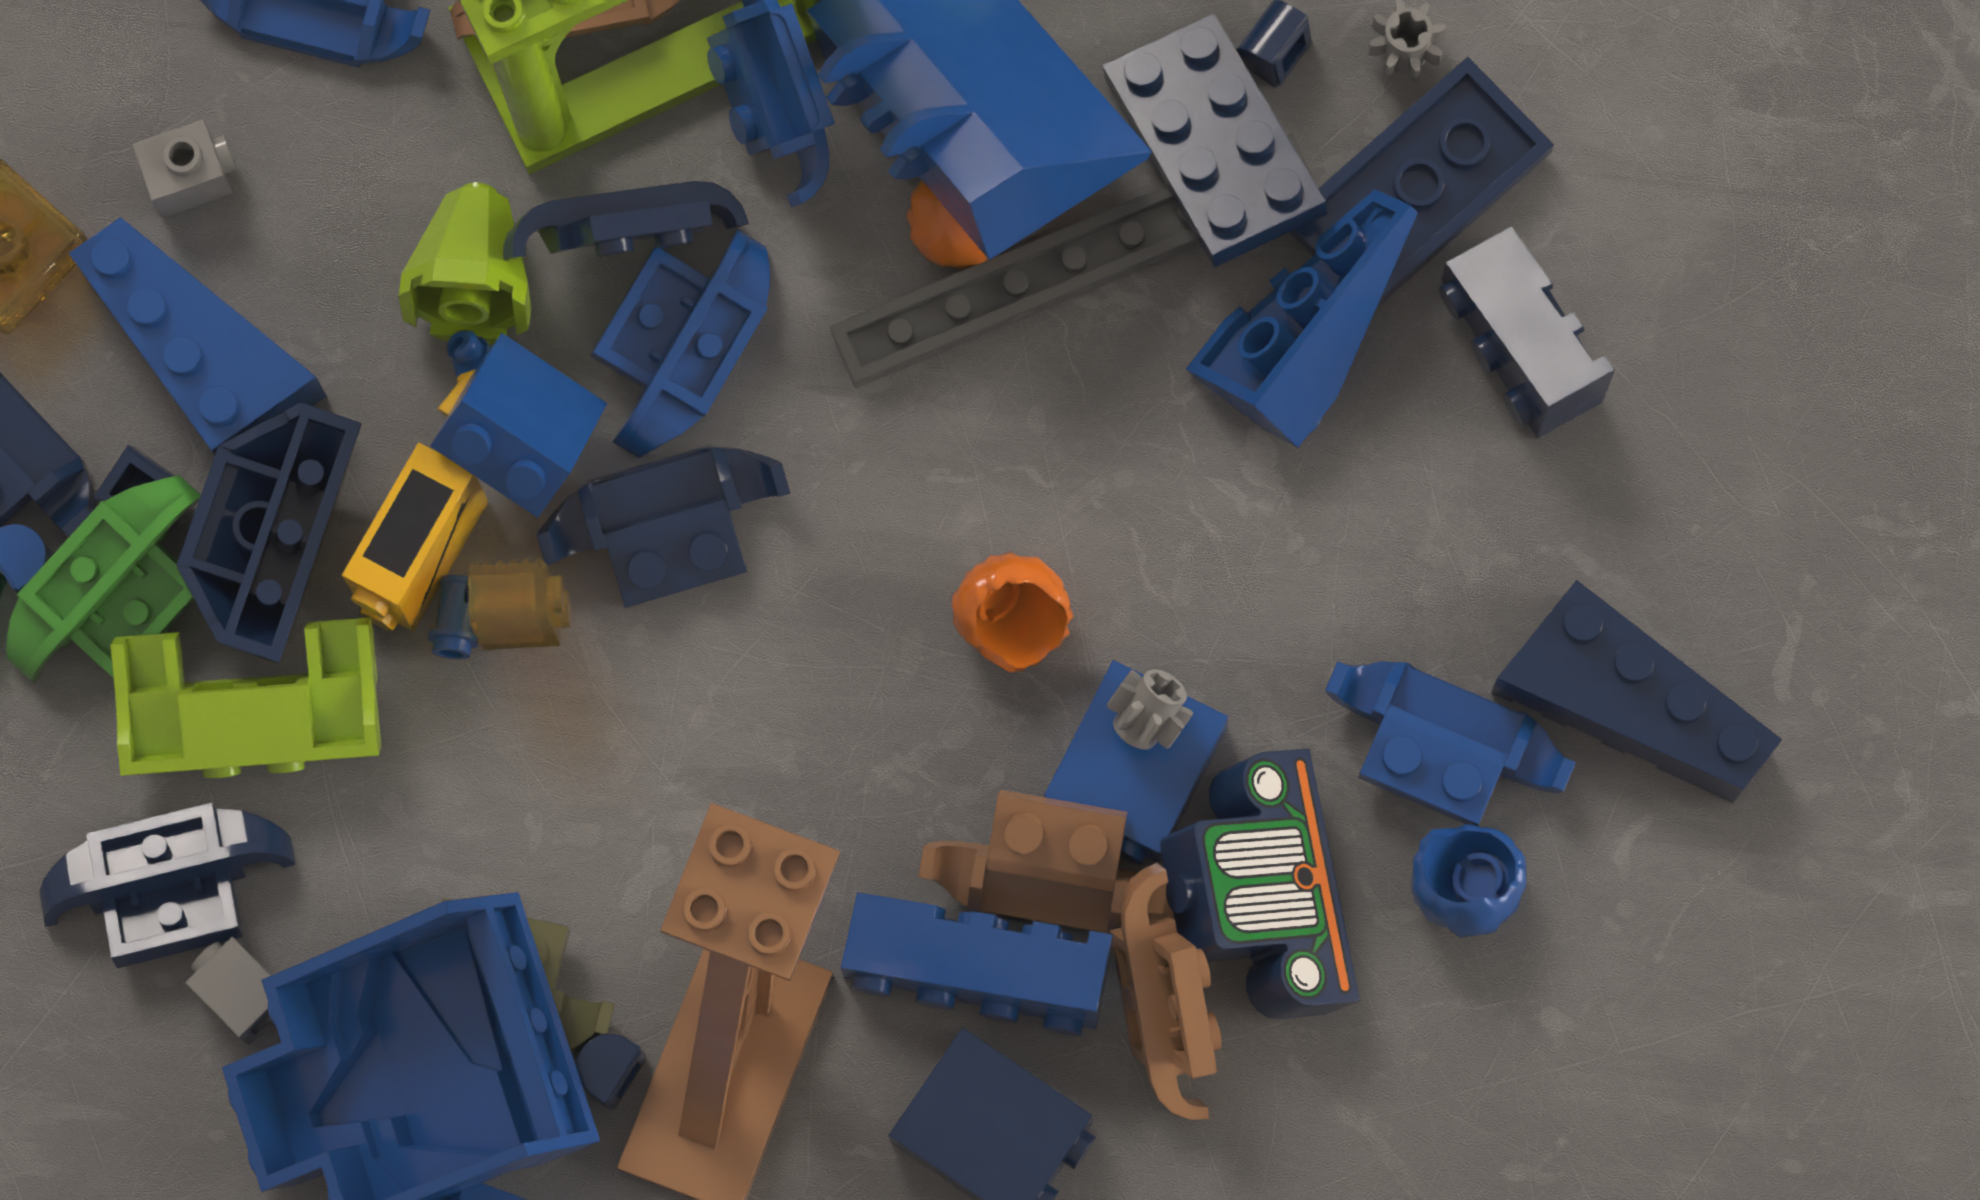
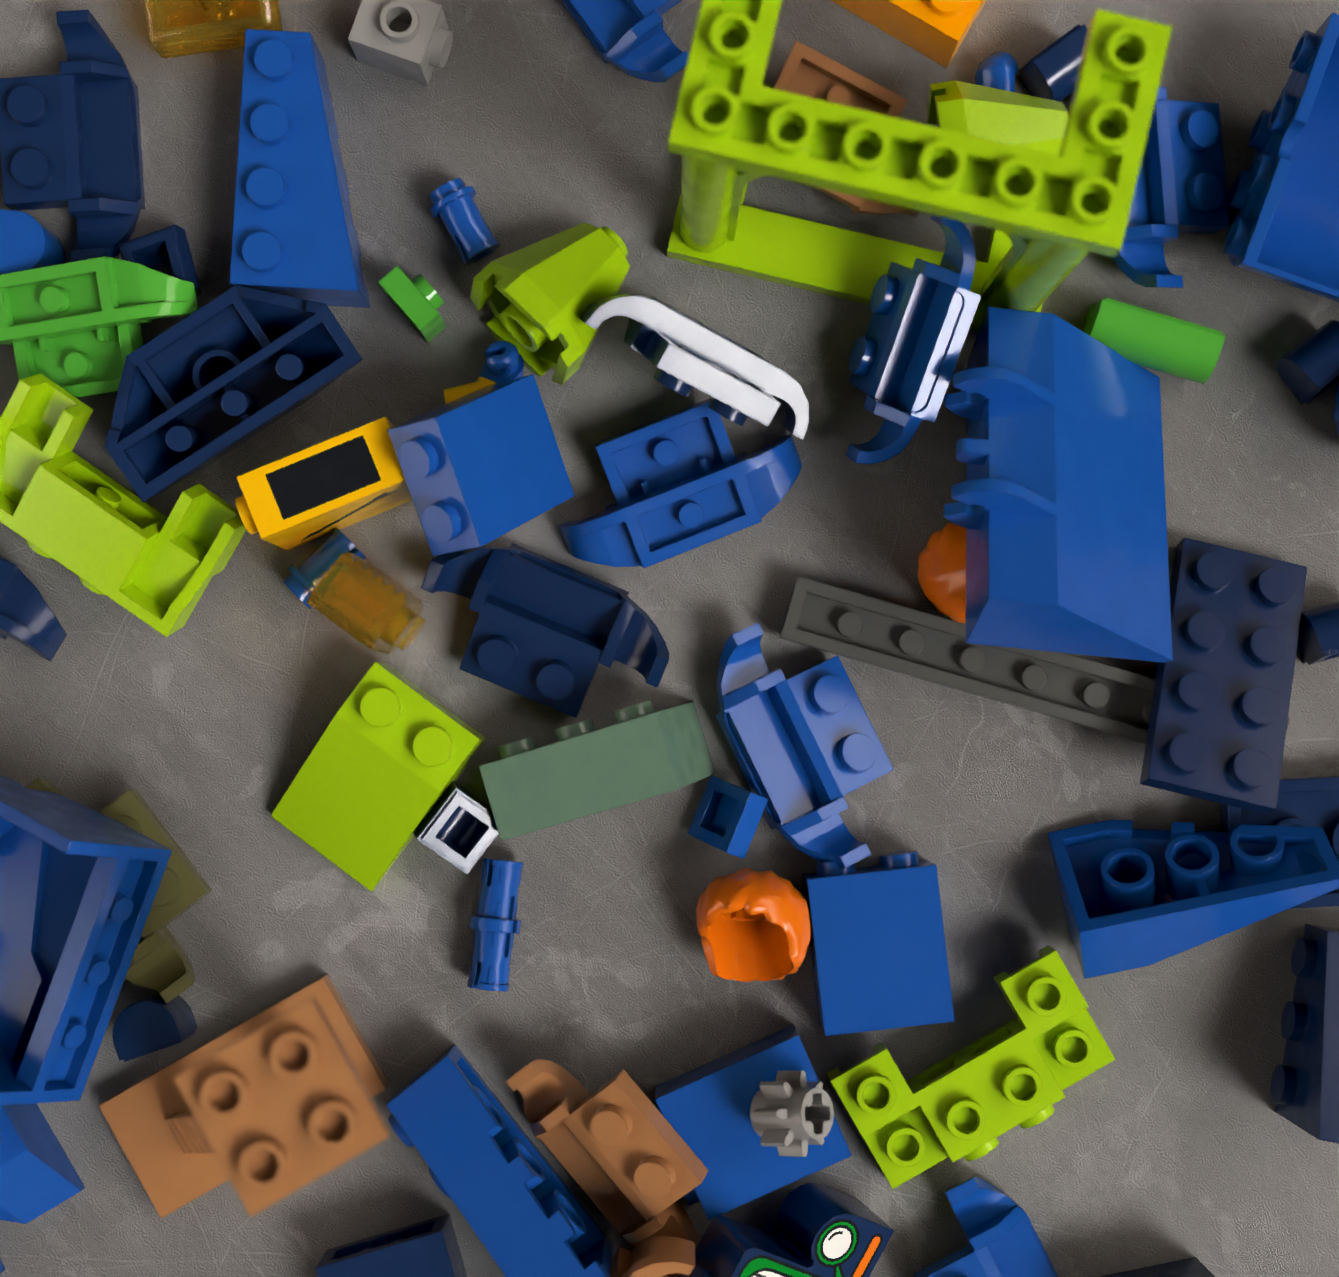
camera: 30 degrees right, 10 degrees up
(348, 269) = (463, 220): none -> blue pin
(362, 359) = (416, 301): none -> bright green plate
(627, 737) = (376, 774): none -> lime slope
(725, 725) = (458, 828): none -> brick
(791, 591) = (595, 768): none -> sand green wedge
(814, 777) = (495, 924): none -> blue pin
(926, 549) = (727, 817): none -> blue tile
(935, 452) = (799, 745): none -> blue plate
(1121, 551) = (878, 945): none -> blue brick
(1288, 609) = (985, 1086): none -> lime bracket

